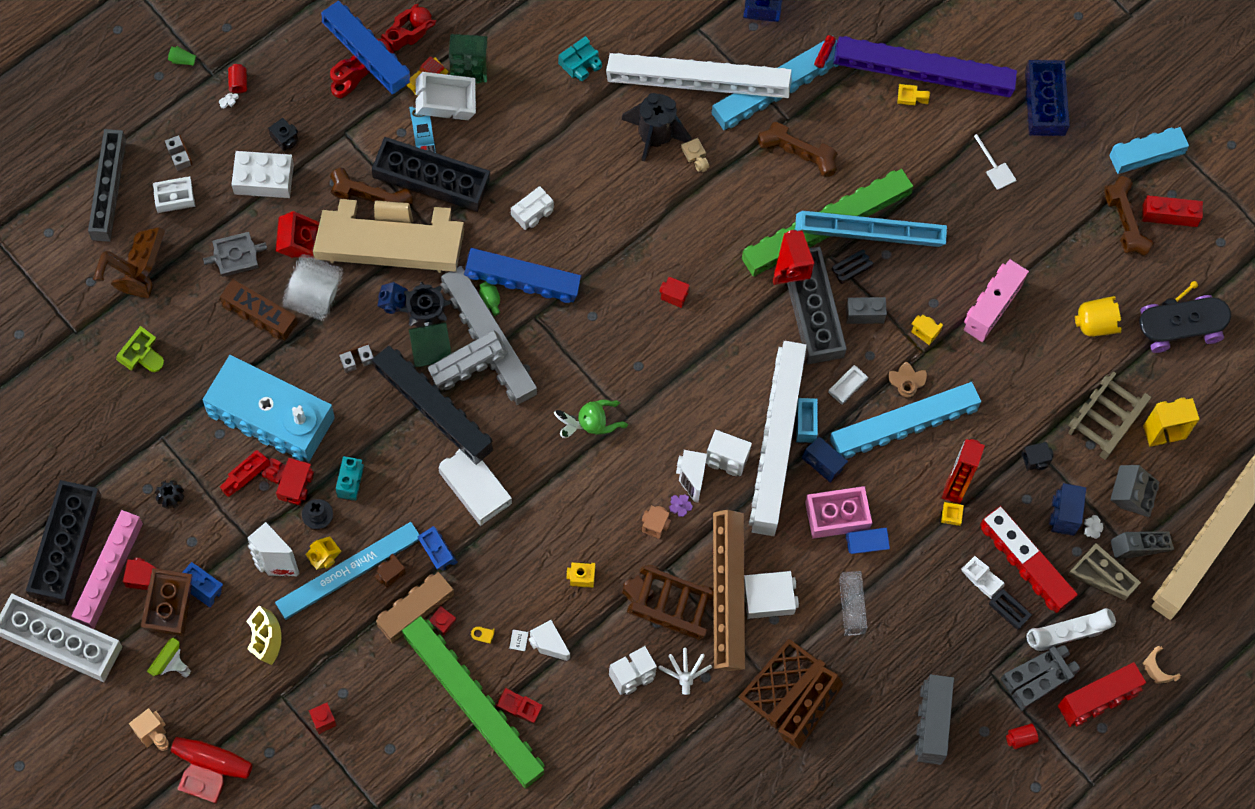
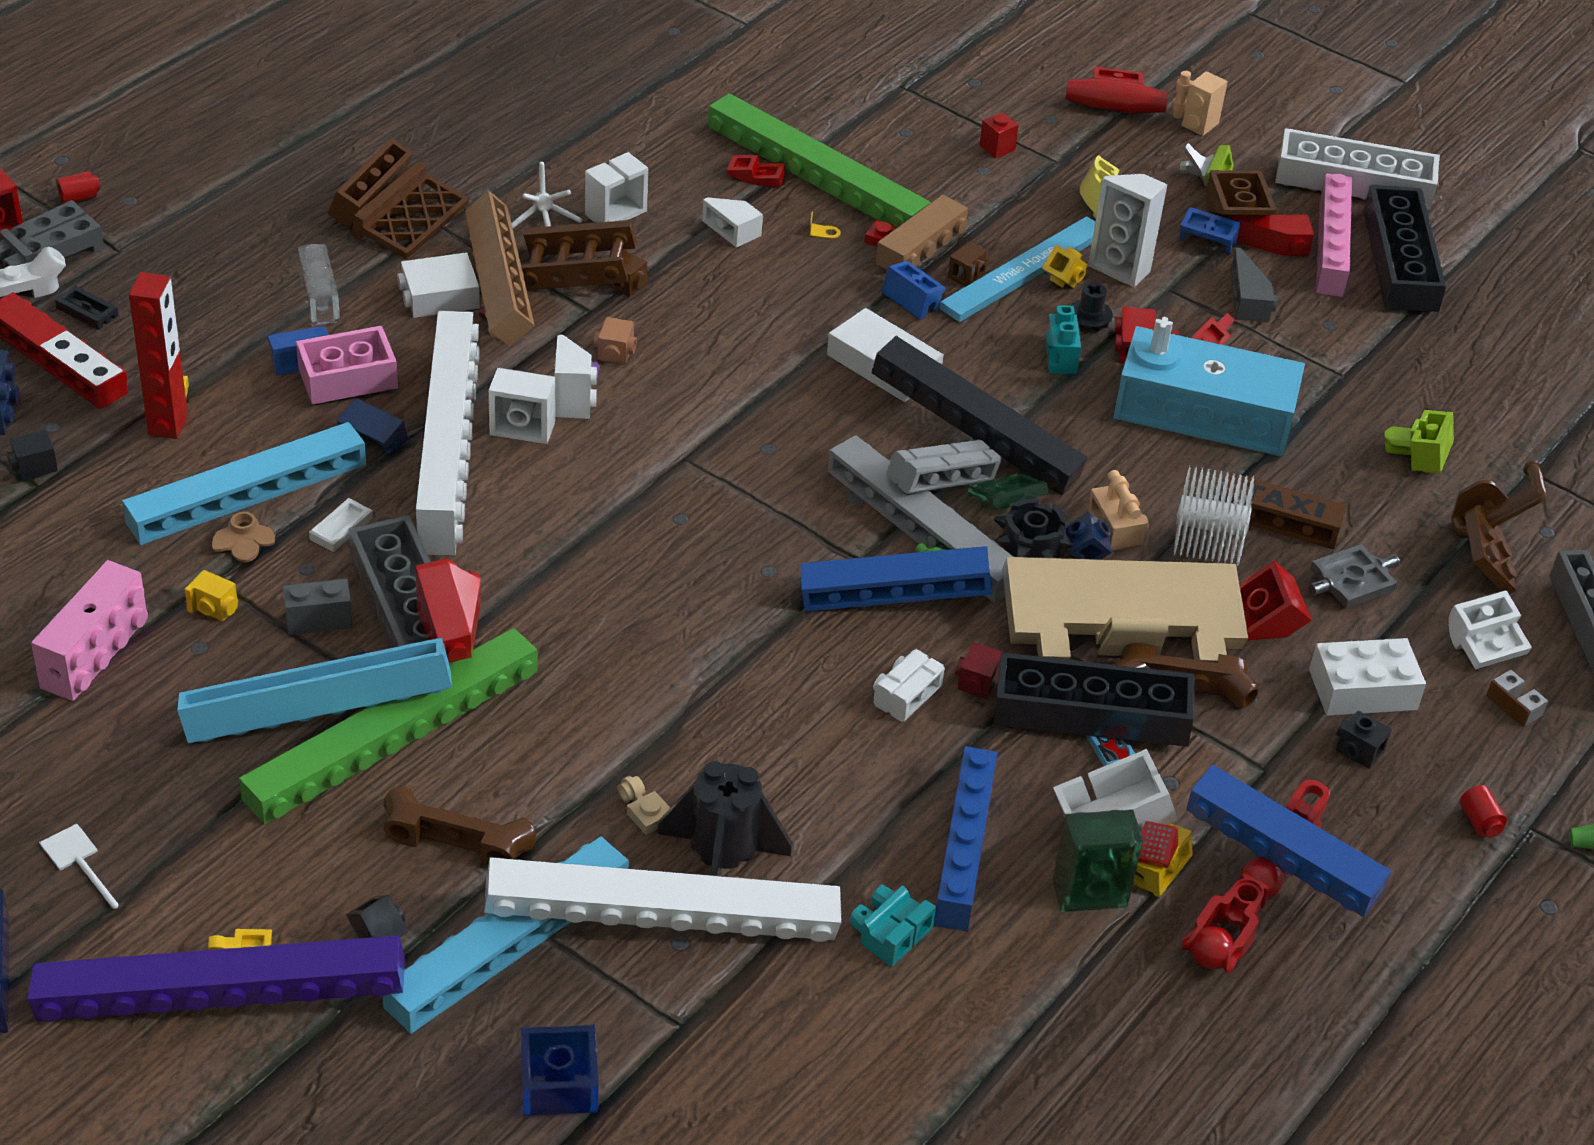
camera: 170 degrees right, 25 degrees down
(175, 494) = (1296, 307): black piece -> none
(195, 516) = (1251, 290): none -> dark grey slope
(229, 100) = (1480, 776): white plant -> none
(347, 357) = (1100, 478): flat silver piece -> none
(366, 318) = (1119, 511): none -> light nougat brick
(488, 212) = (978, 670): none -> dark red brick
(518, 640) = (775, 230): white sticker -> none
(528, 102) = (965, 839): none -> blue brick
(584, 580) = (707, 284): yellow brick -> none
(590, 418) = (739, 426): bright green hair -> none
(674, 292) = (642, 600): red brick -> none
(806, 420) = (404, 457): medium azure brick -> none
(825, 51) = (423, 970): red axle -> none
(844, 92) = (377, 918): none -> black brick
(935, 719) = (200, 180): dark grey brick -> none
(982, 577) = (117, 331): white slope -> none

